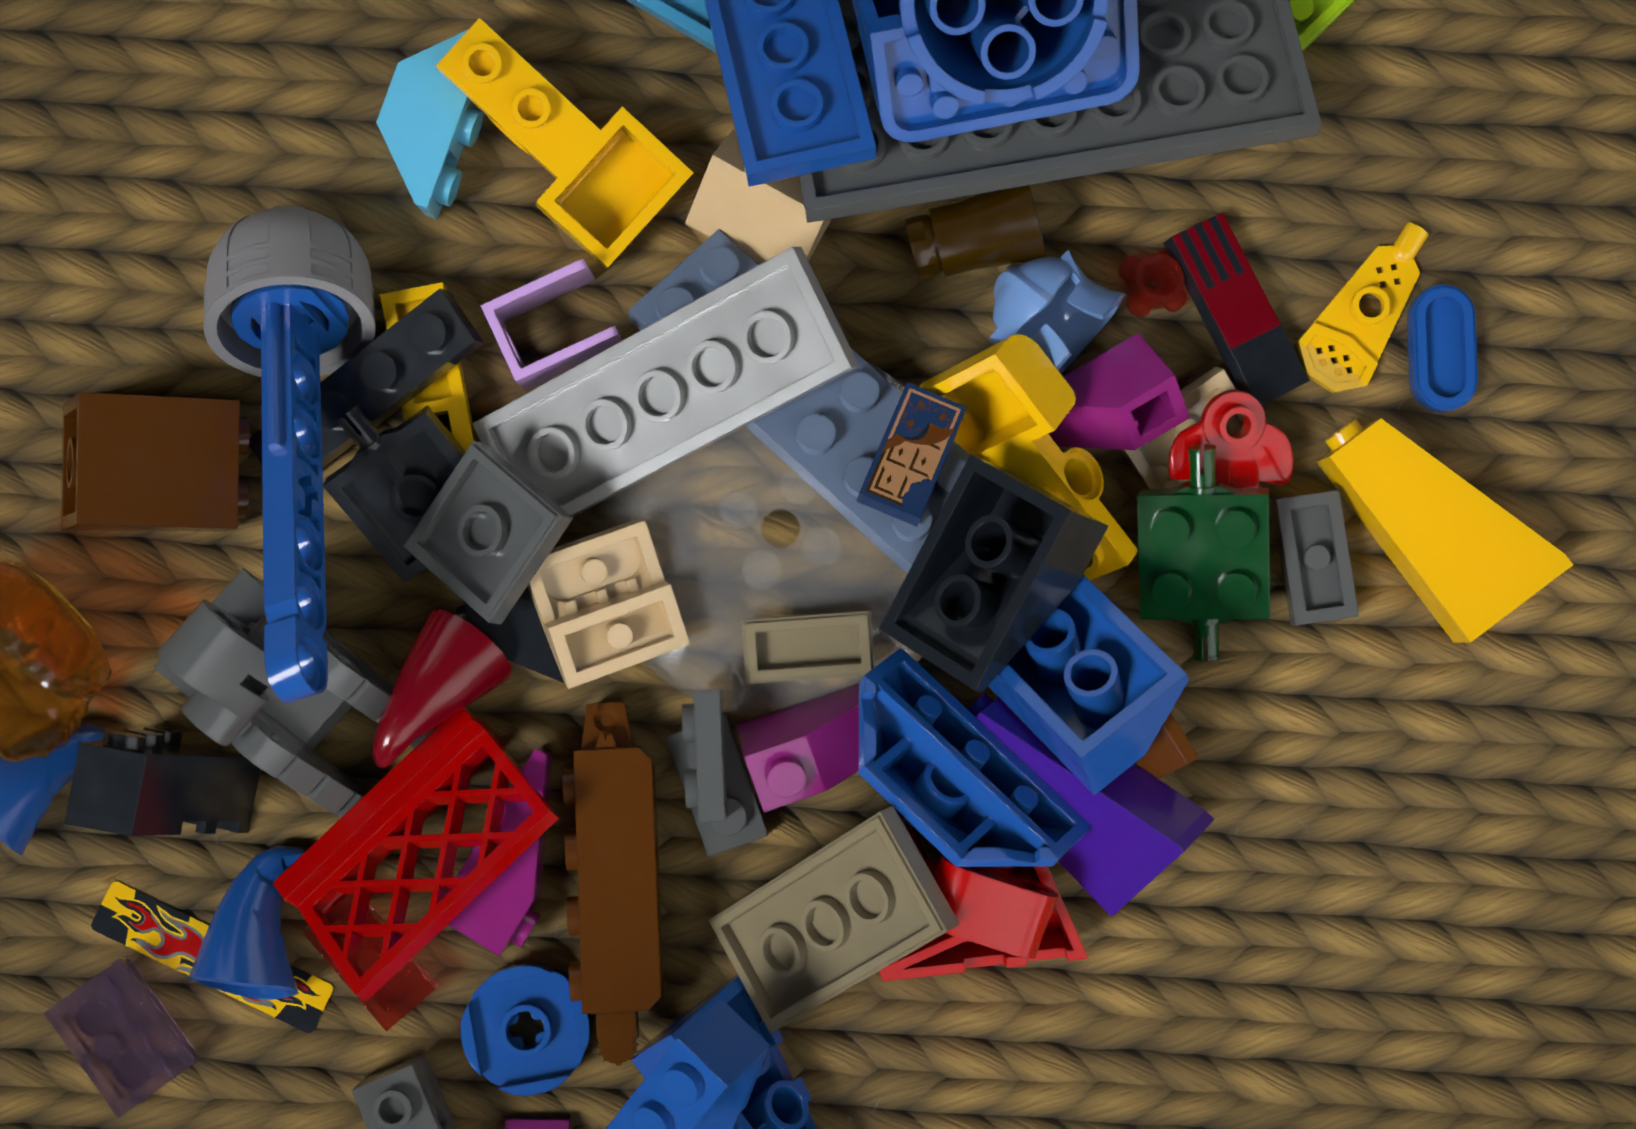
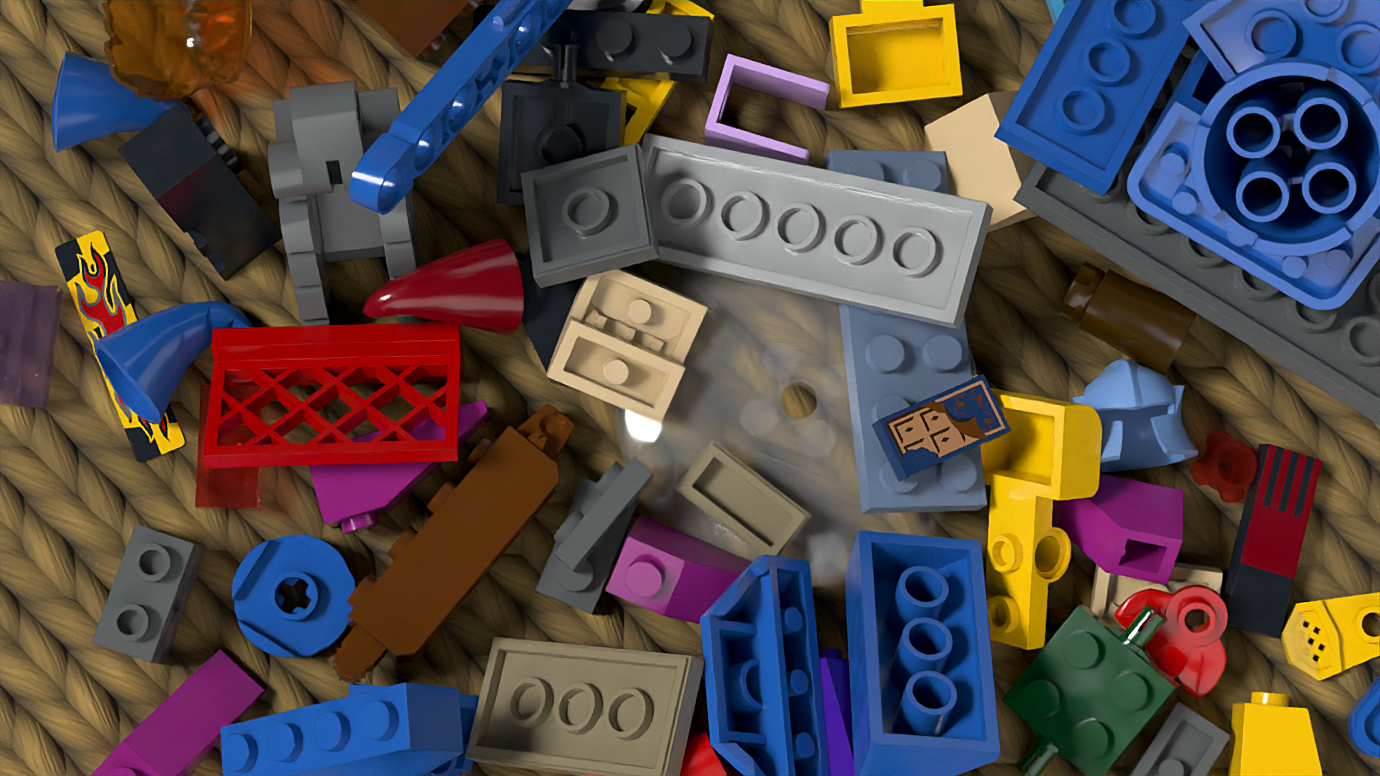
camera: 40 degrees right, 5 degrees down
(990, 572) = (923, 560): black slope -> none

